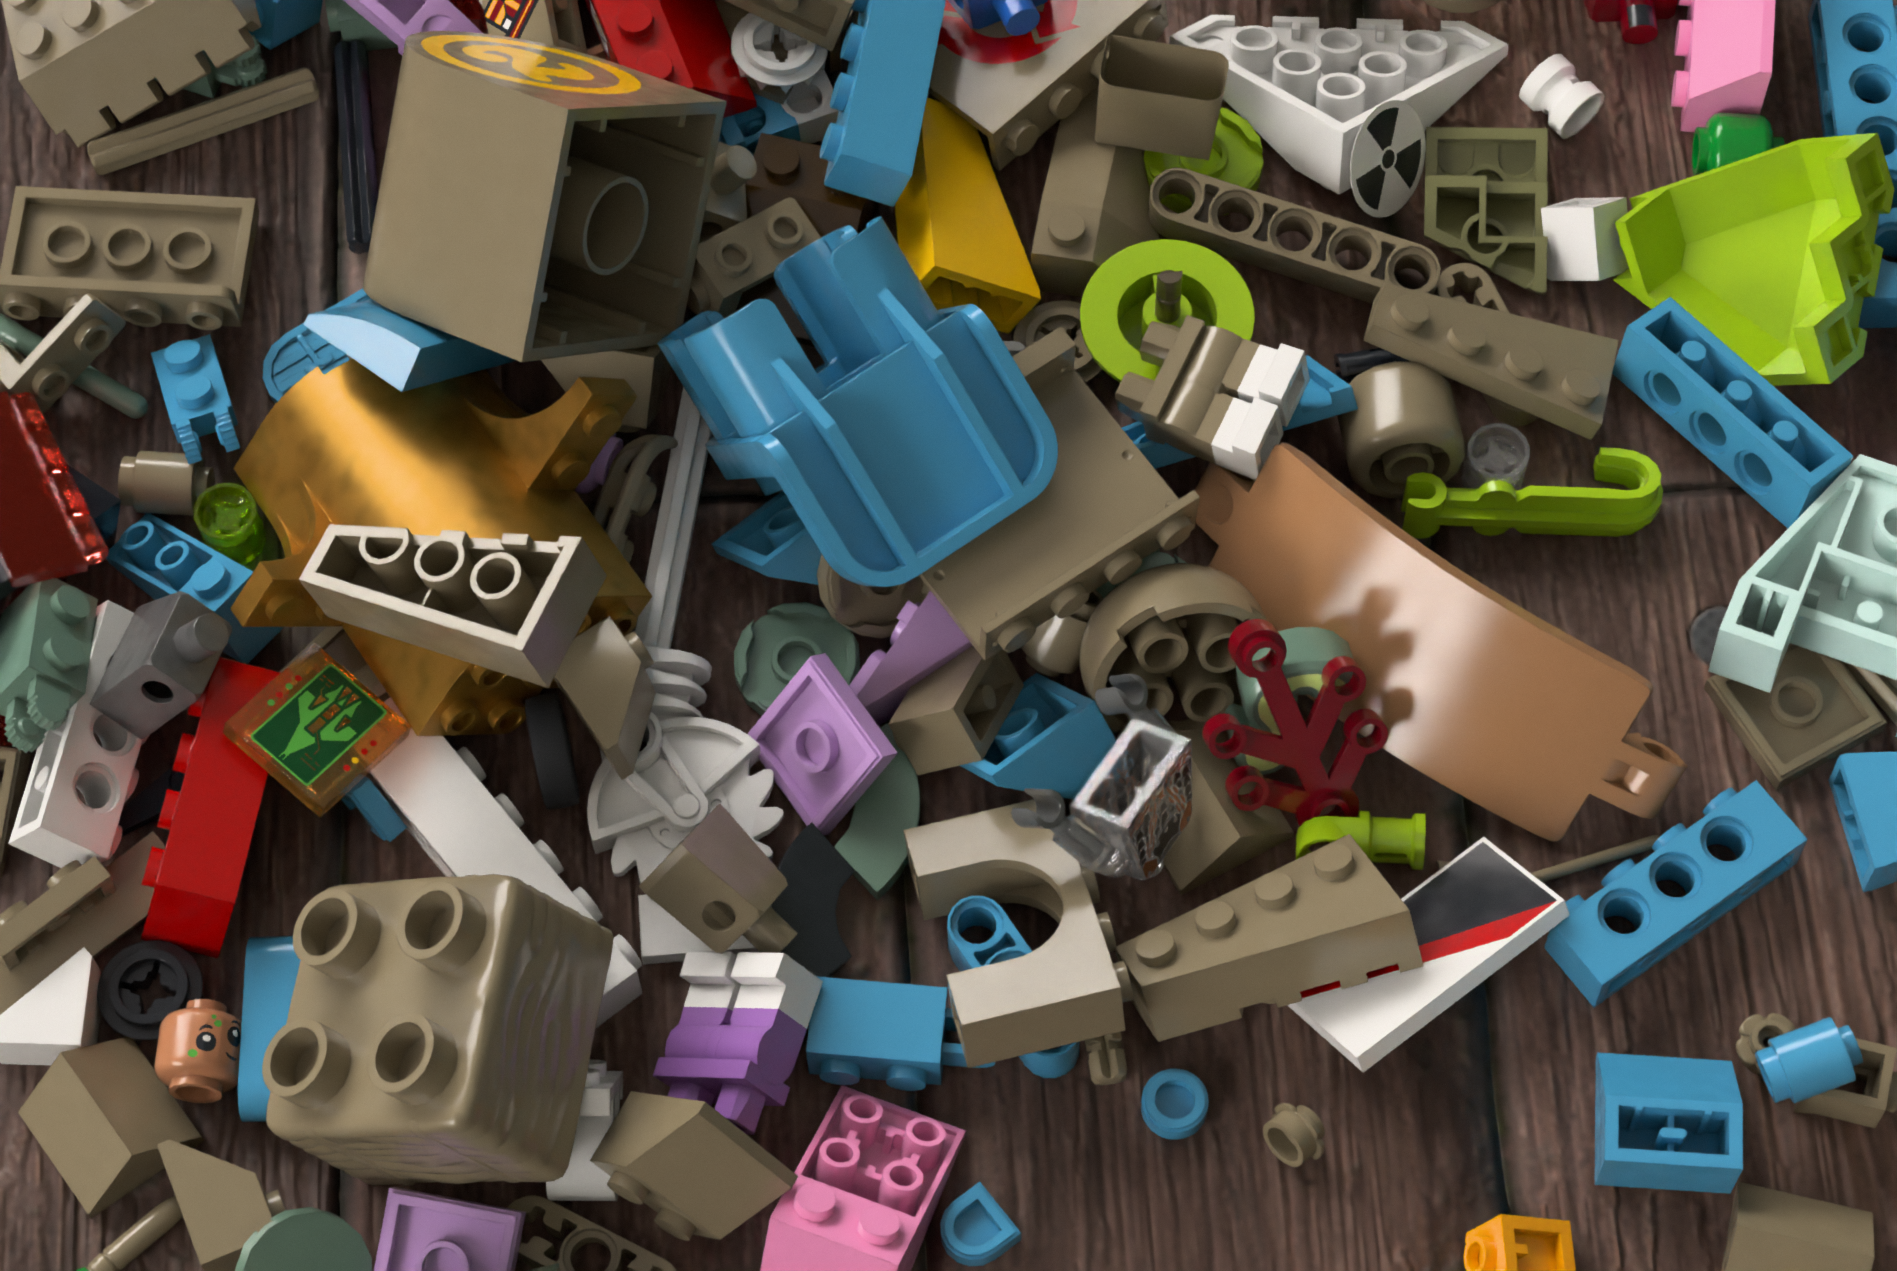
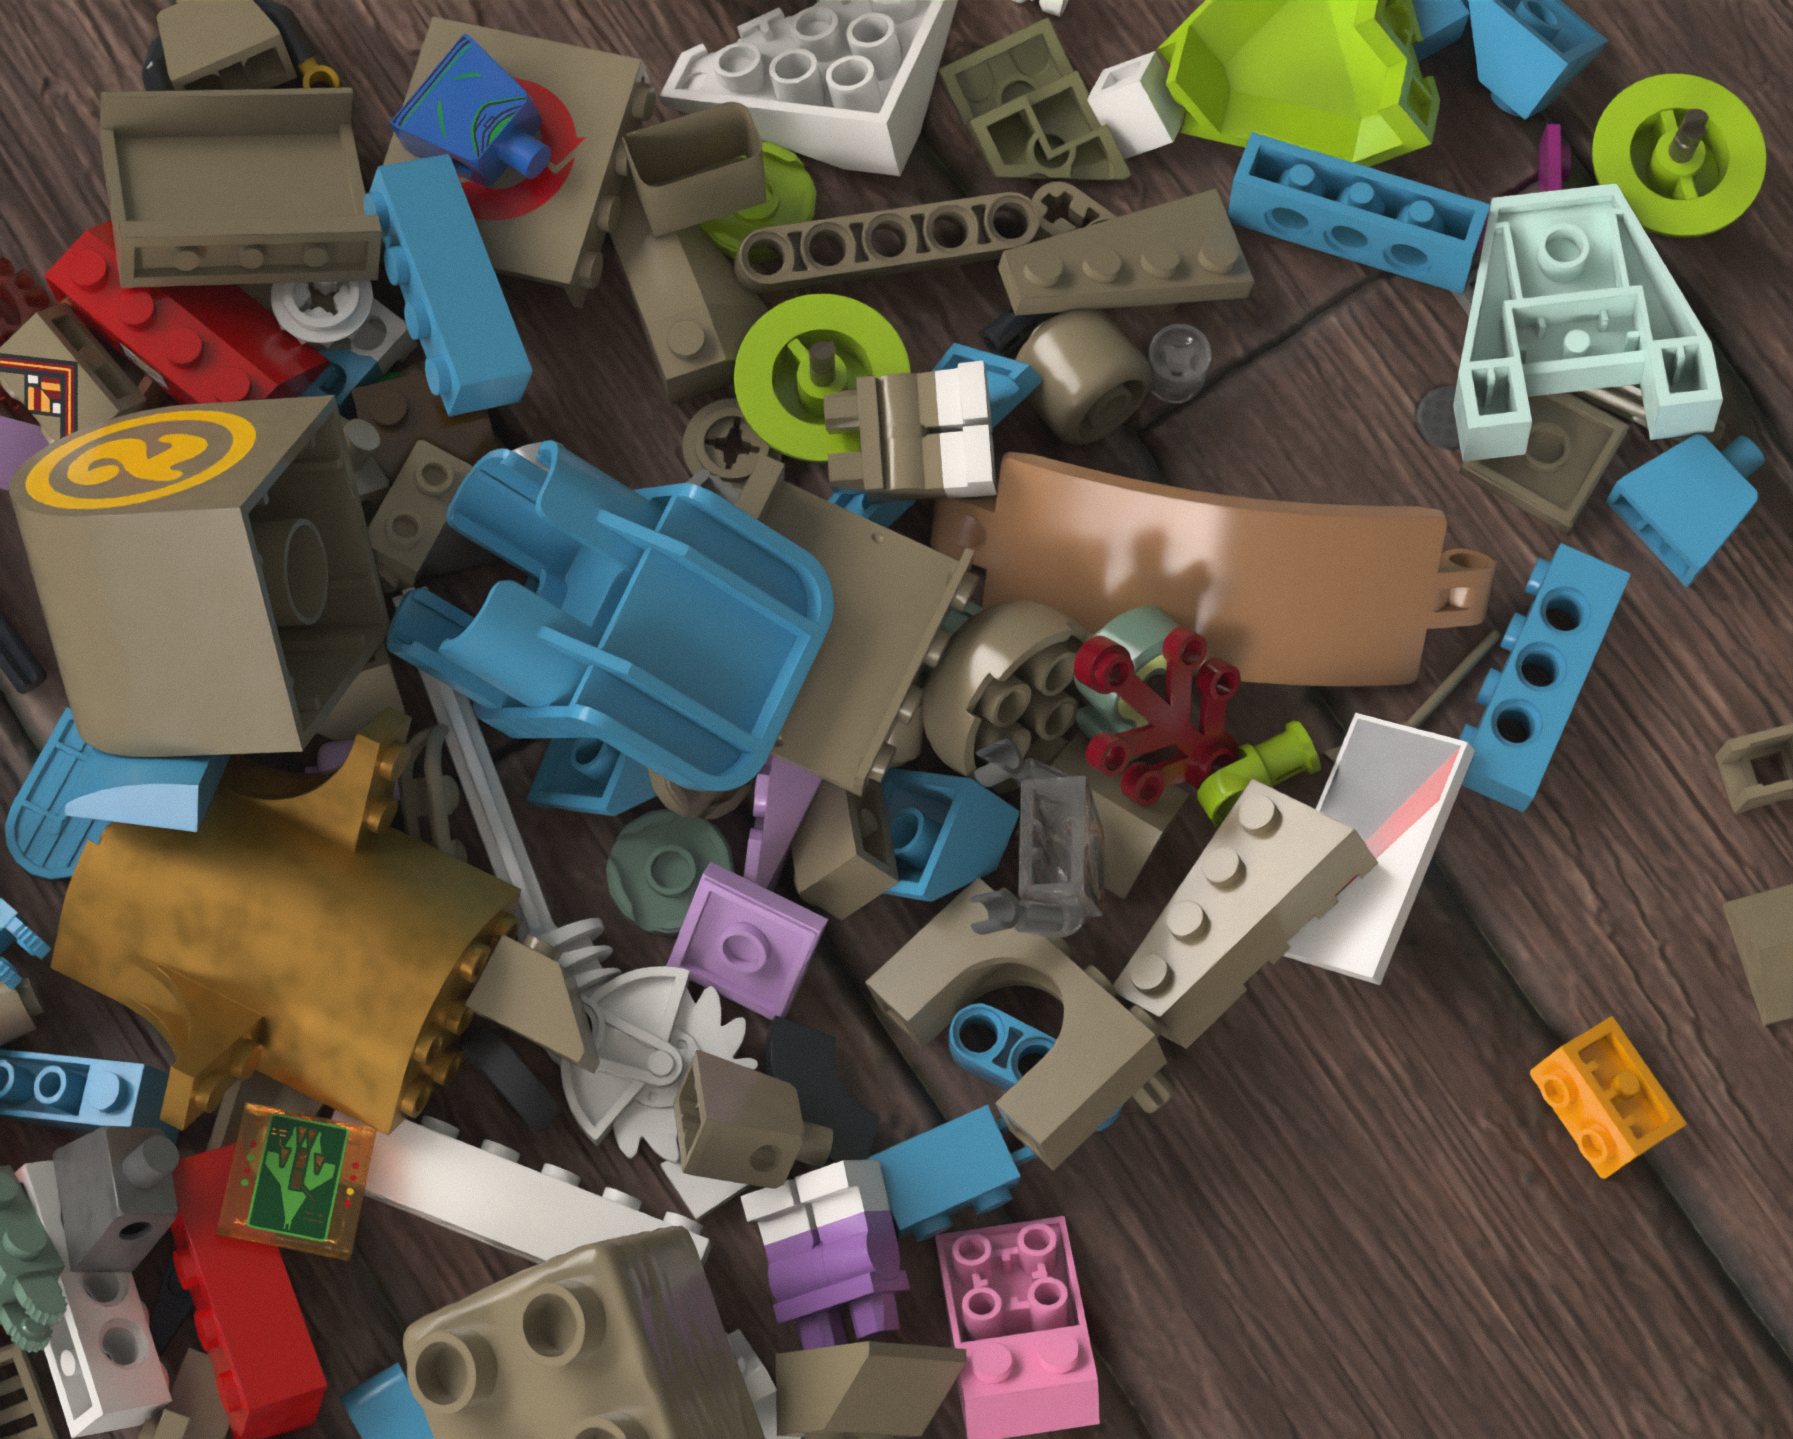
camera: 35 degrees left, 10 degrees up
(227, 510) = (68, 1012): clear neon green wheel -> none
(375, 809) = (385, 1218): dark azure tile -> none
(474, 599) = (397, 996): dark tan wedge -> none
(876, 836) = (836, 983): sand green tile -> none
(959, 226) = (588, 388): yellow slope -> none
(977, 1228) = (1124, 1297): dark azure tile -> none
(1174, 1104) = (1227, 1093): dark azure tile -> none
(1294, 1134) = (1344, 1066): dark tan plate -> none
(1387, 158) = (927, 121): white sticker -> none
(1541, 508) = (1213, 398): lime piece -> none
(1667, 1123) = (1645, 883): dark azure slope -> none
(1754, 1031) = (1681, 784): dark tan plate -> none
(1809, 1061) = (1743, 775): dark azure brick -> none

